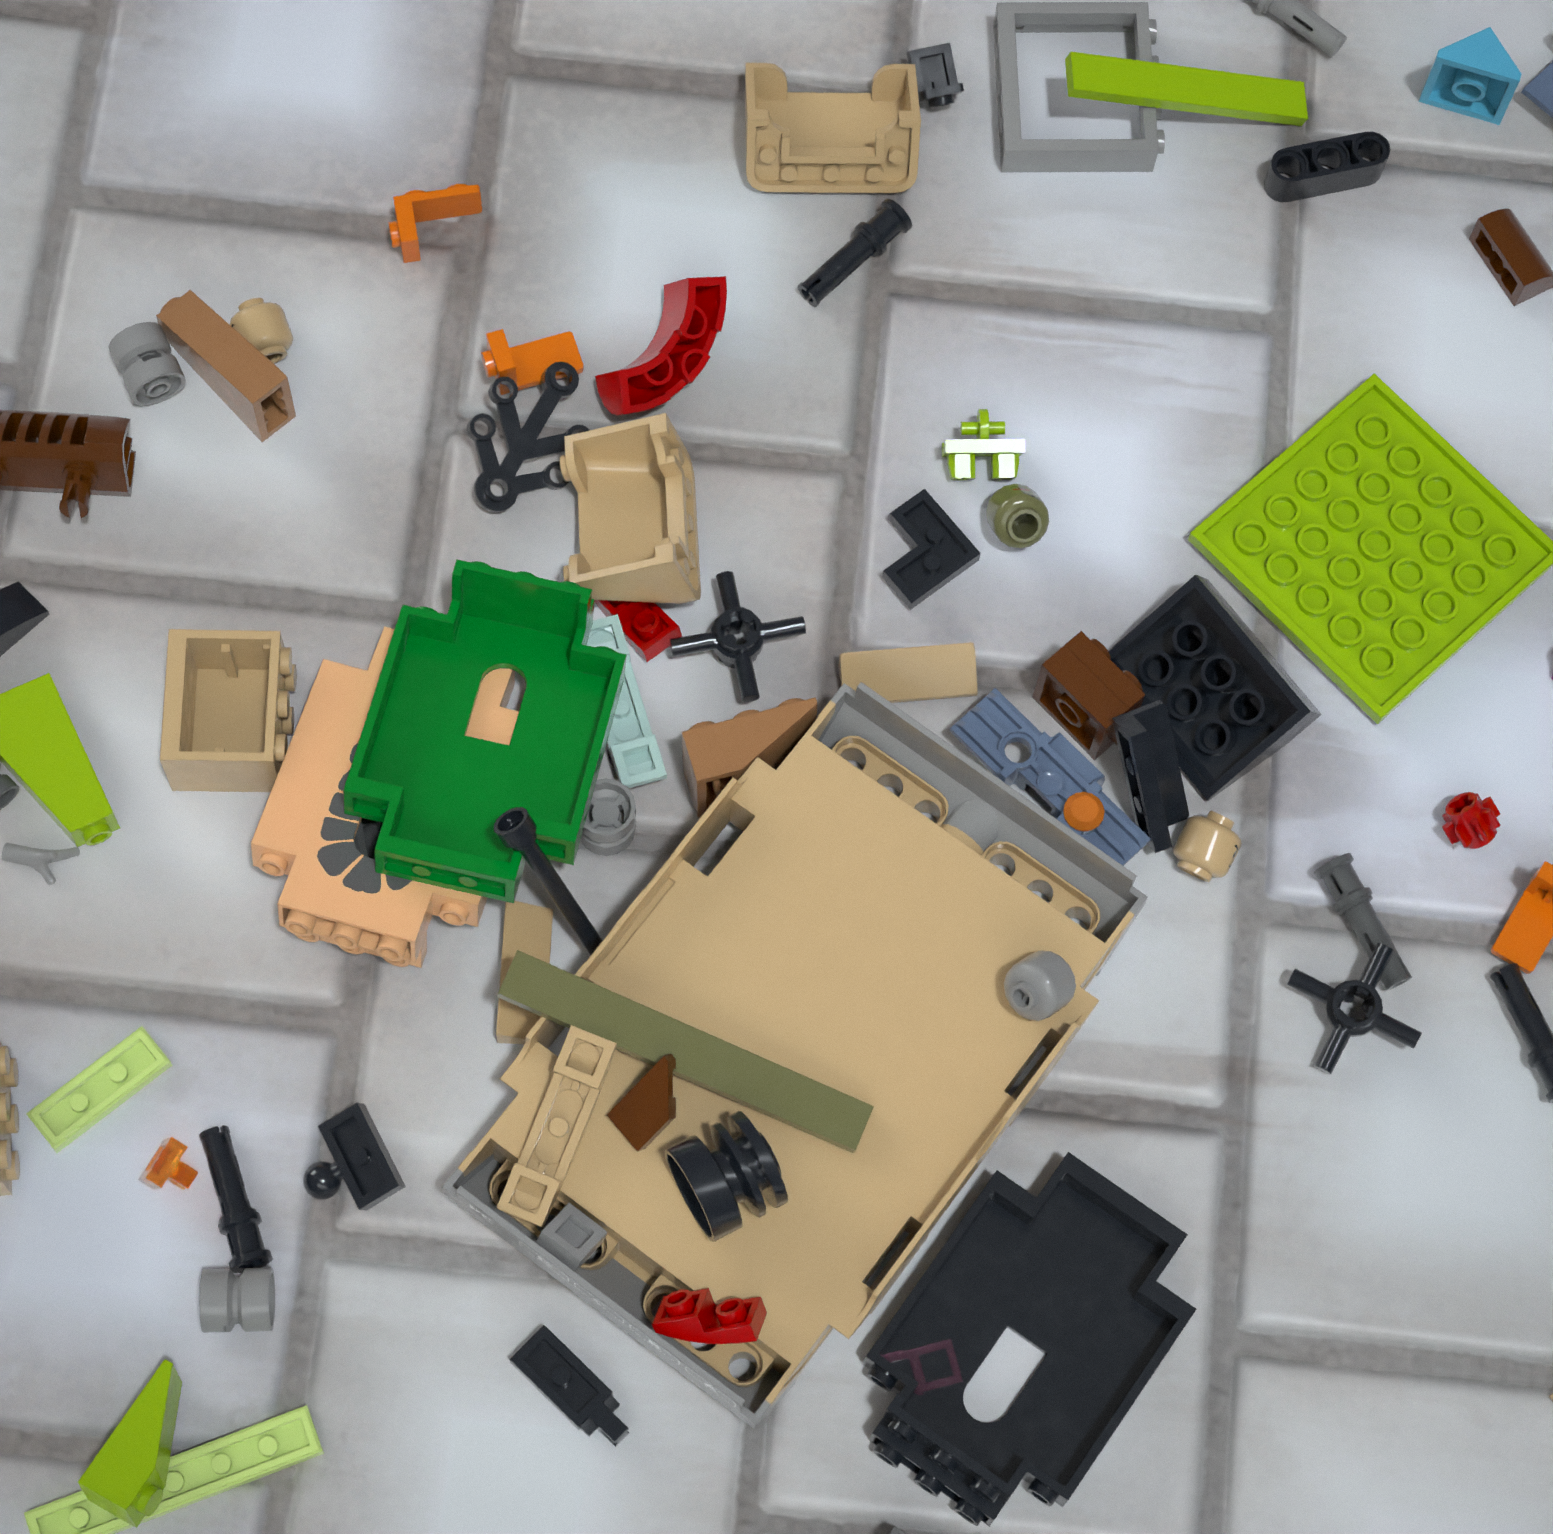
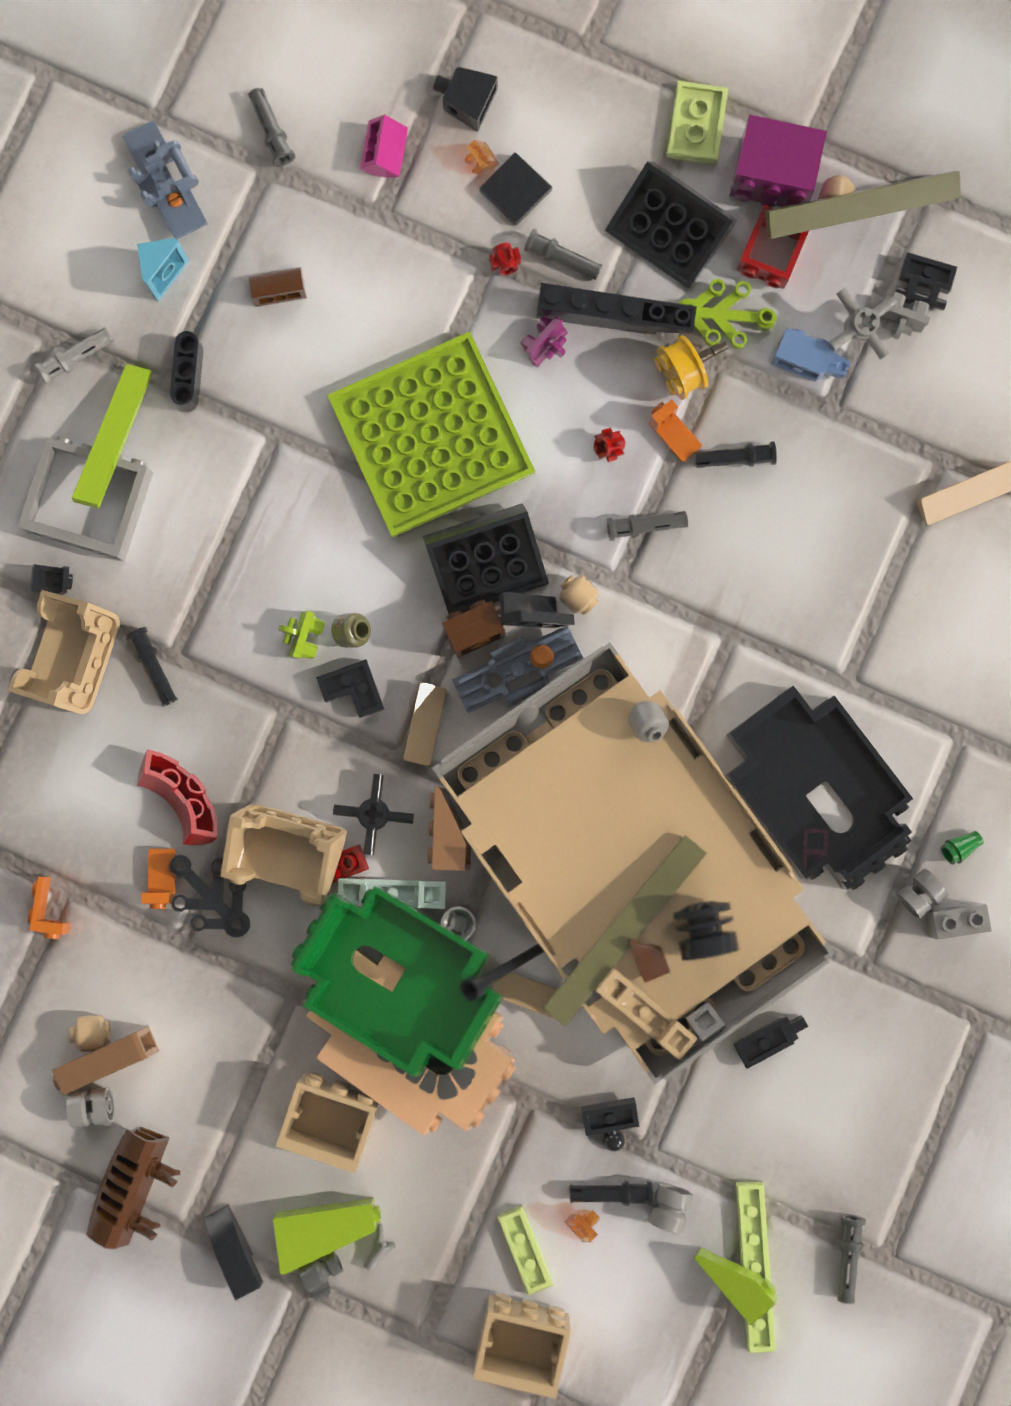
camera: 65 degrees left, 15 degrees up
(698, 1319) = (774, 965): red slope -> none
(1345, 1026) = (704, 549): black bar -> none

